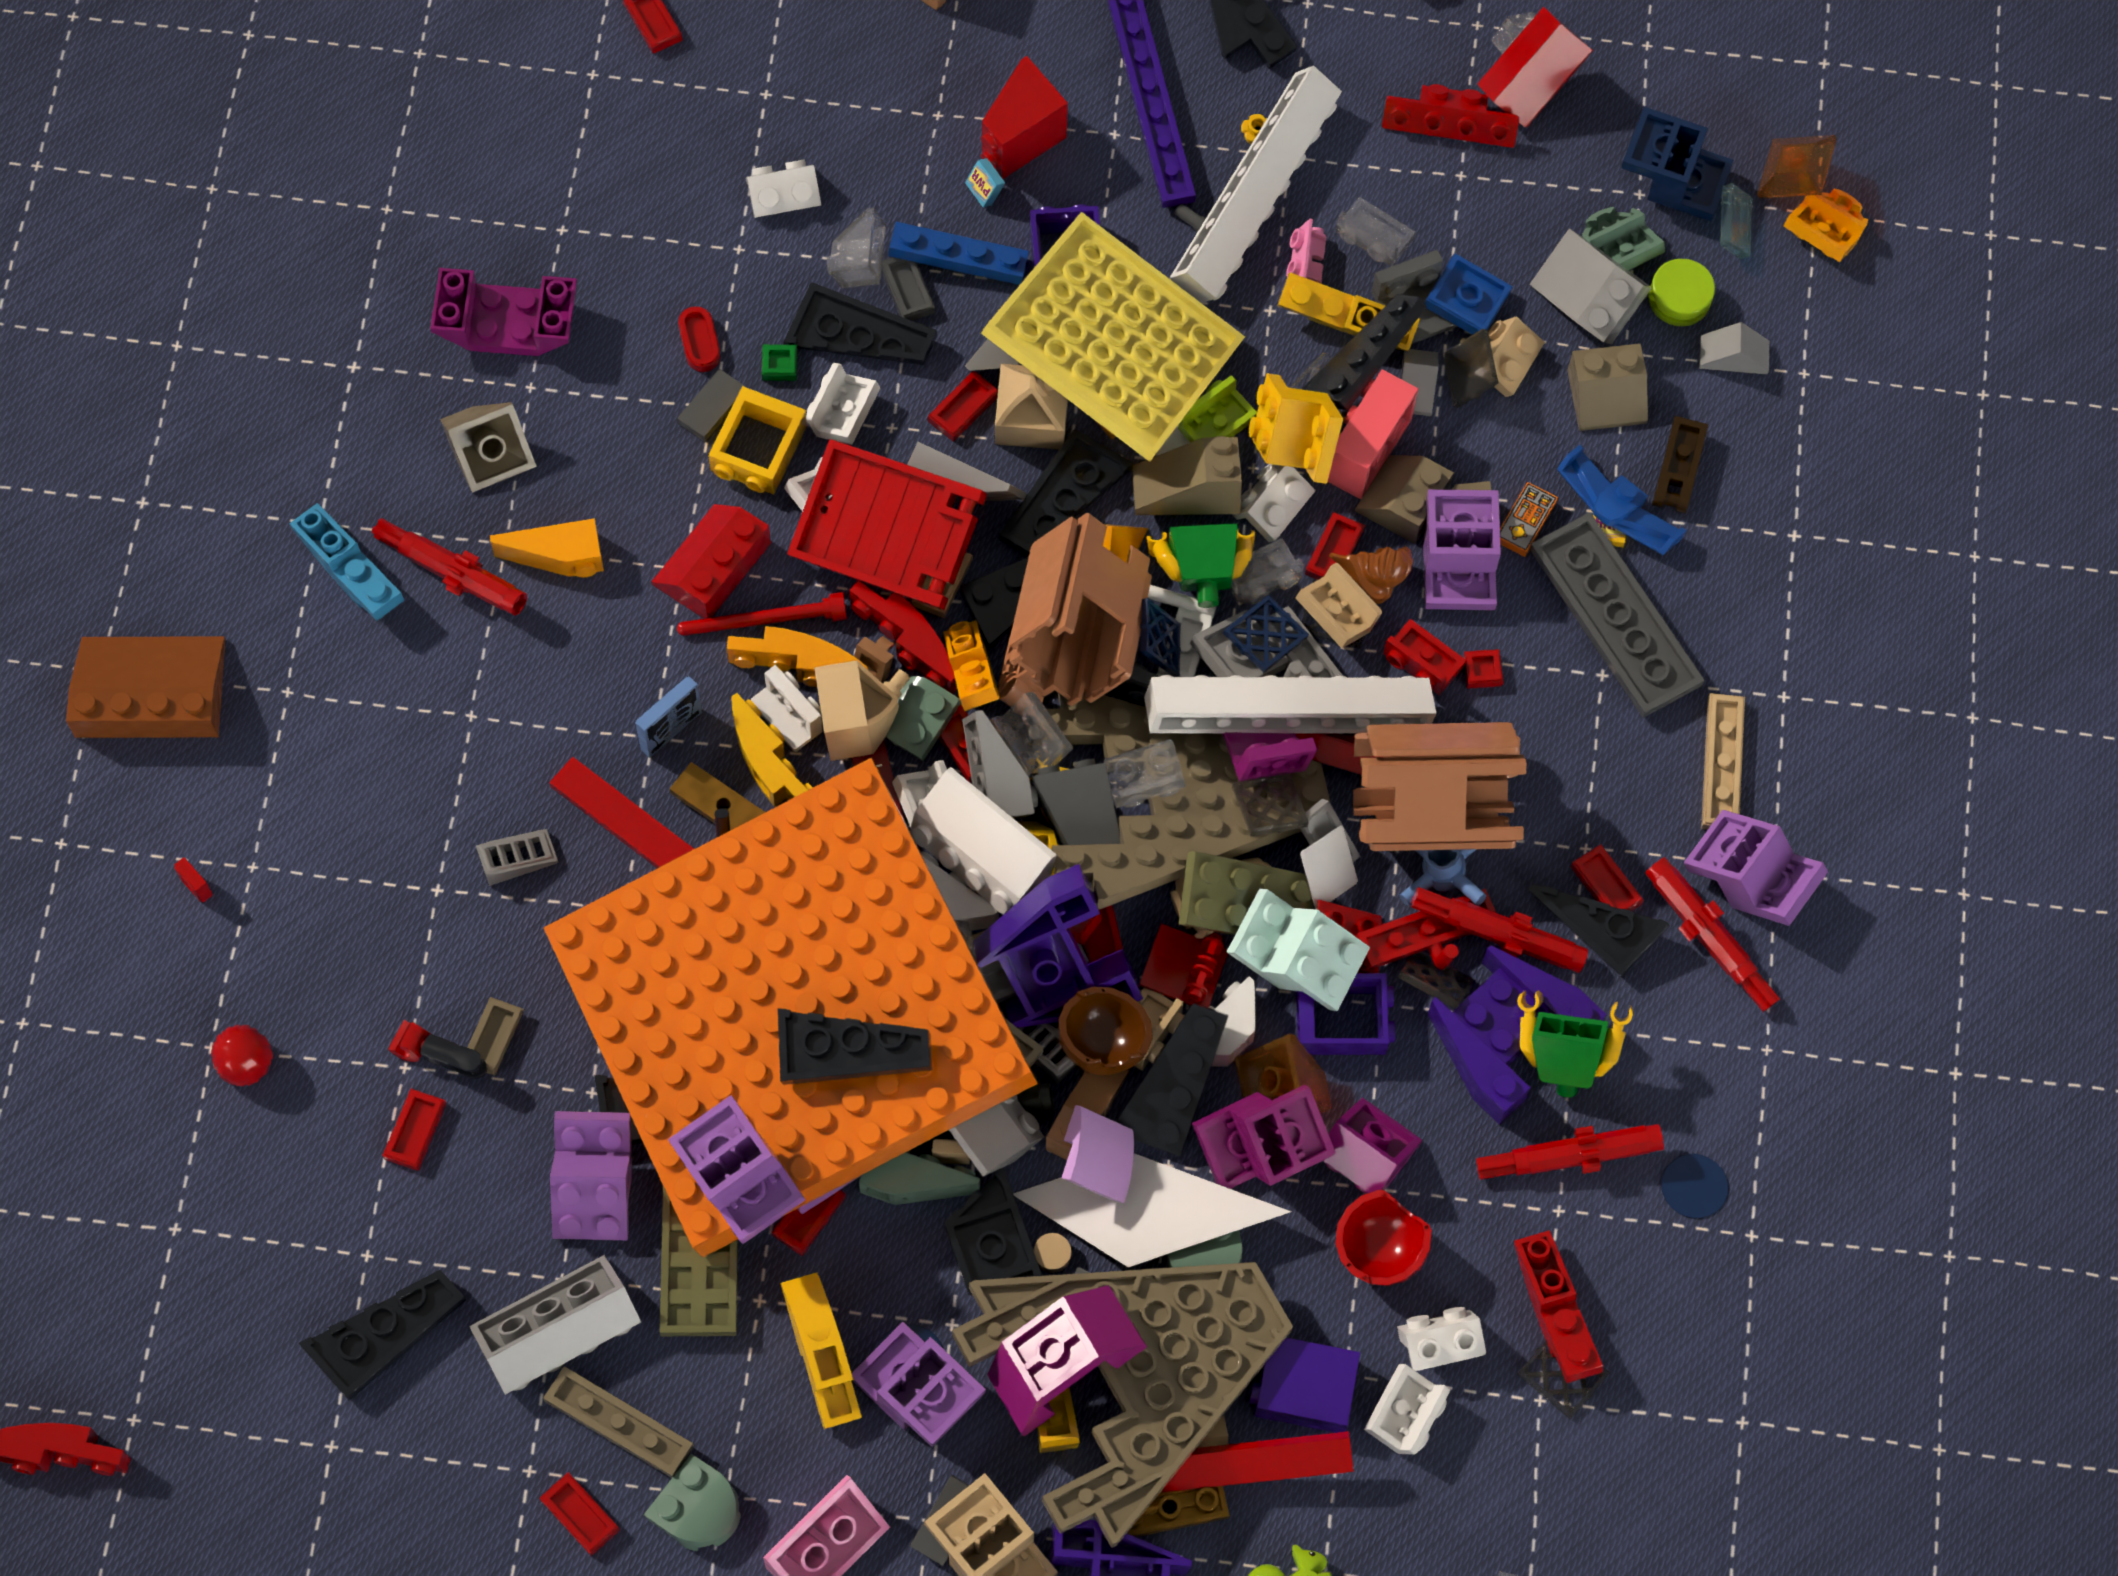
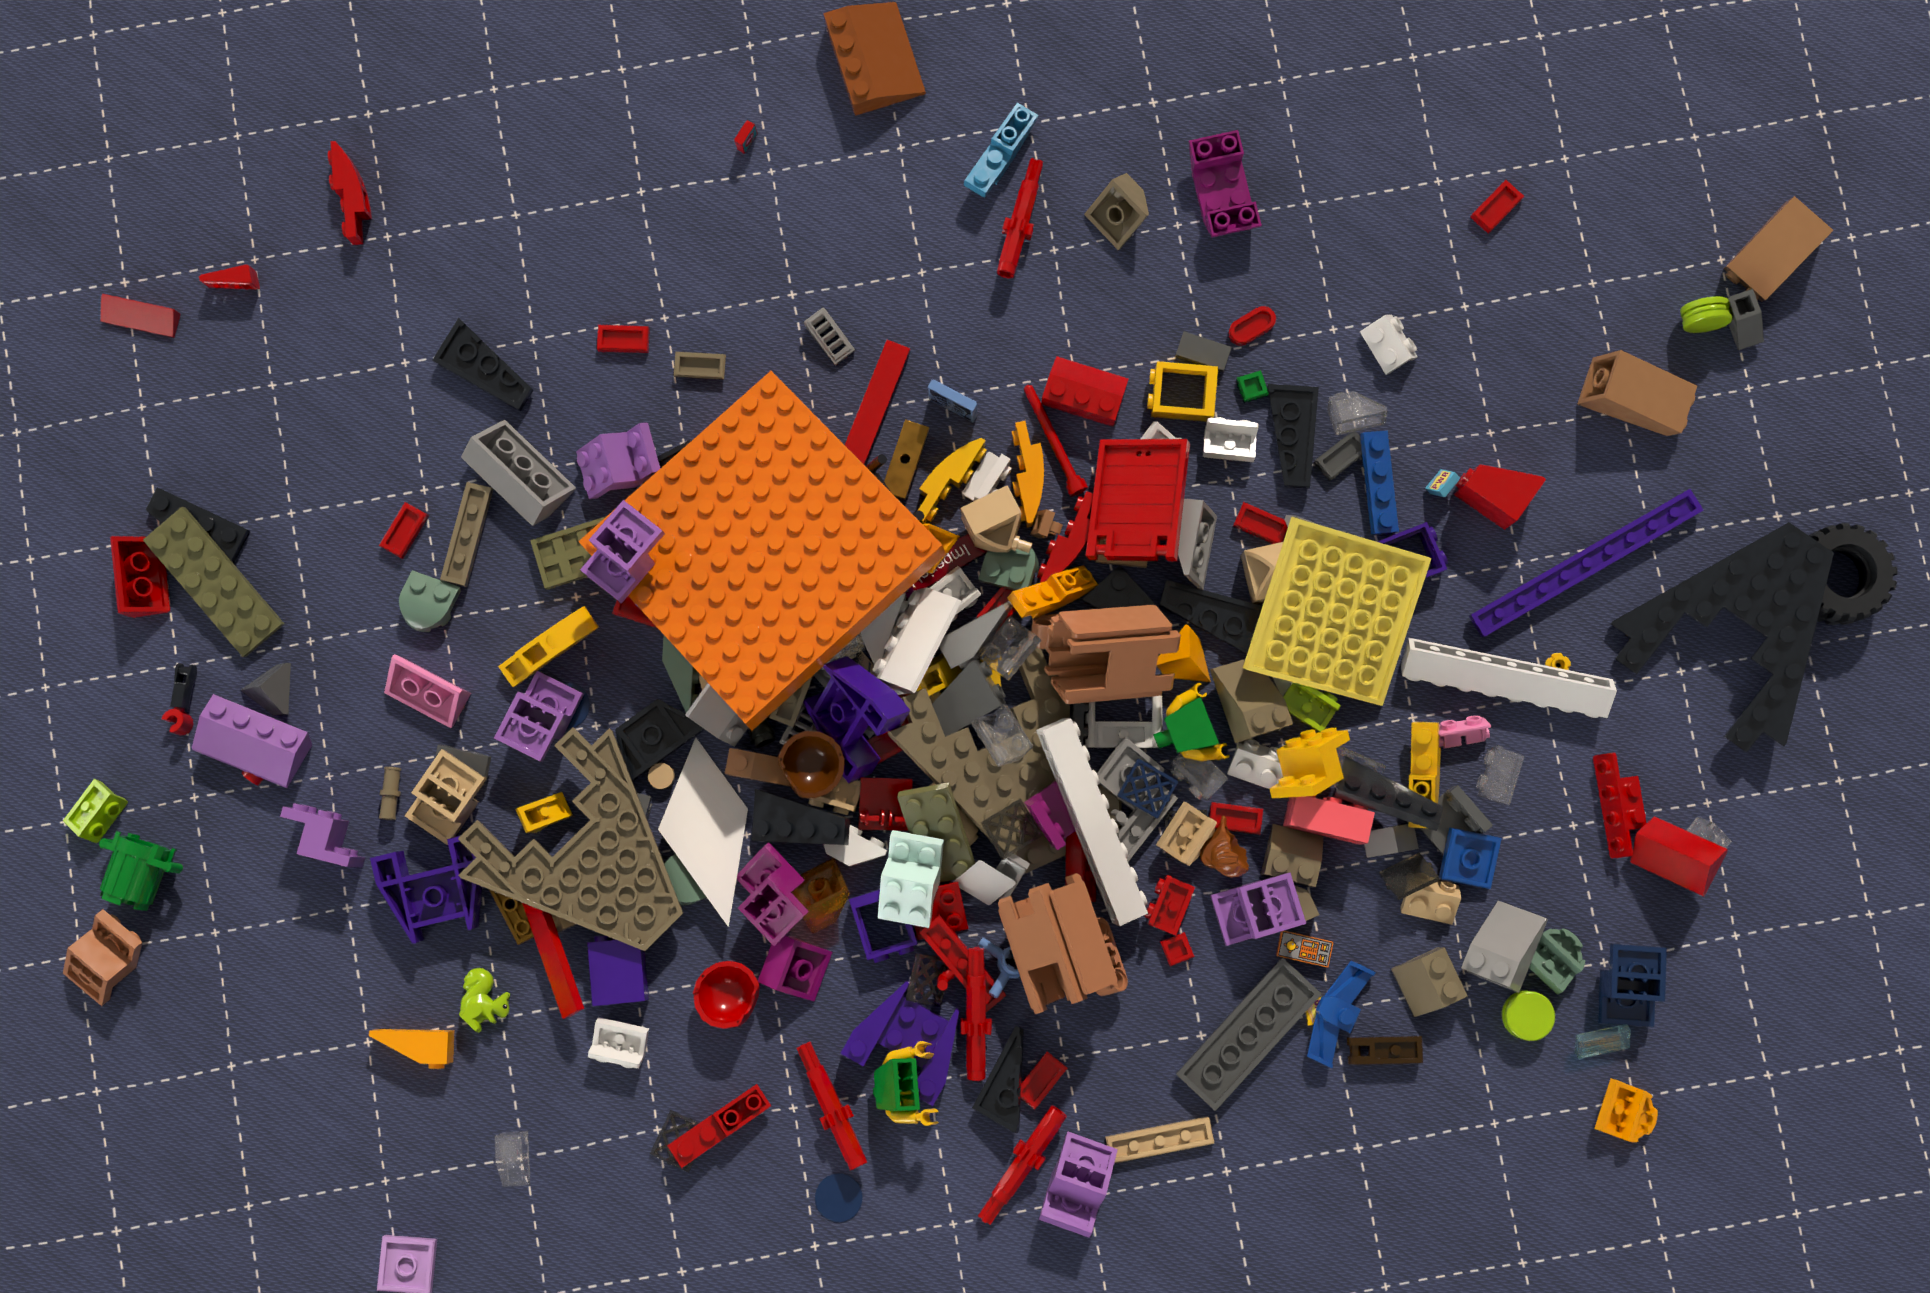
camera: 80 degrees right, 15 degrees up
(241, 1055) = (635, 212): red hair -> none
(414, 1041) = (679, 317): black piece -> none
(559, 548) = (1059, 290): light orange slope -> none
(835, 1049) = (726, 593): black wing -> none
(1060, 1350) = (577, 806): magenta slope -> none
(1099, 1154) = (727, 787): lavender slope -> none
(1172, 665) = (1130, 699): dark blue window -> none
(1189, 217) = (1467, 638): dark grey piece -> none
(1443, 1338) = (674, 1052): white bracket -> none
(1735, 350) = (1493, 1067): light grey slope -> none
(1797, 166) = (1665, 1076): clear orange slope -> none

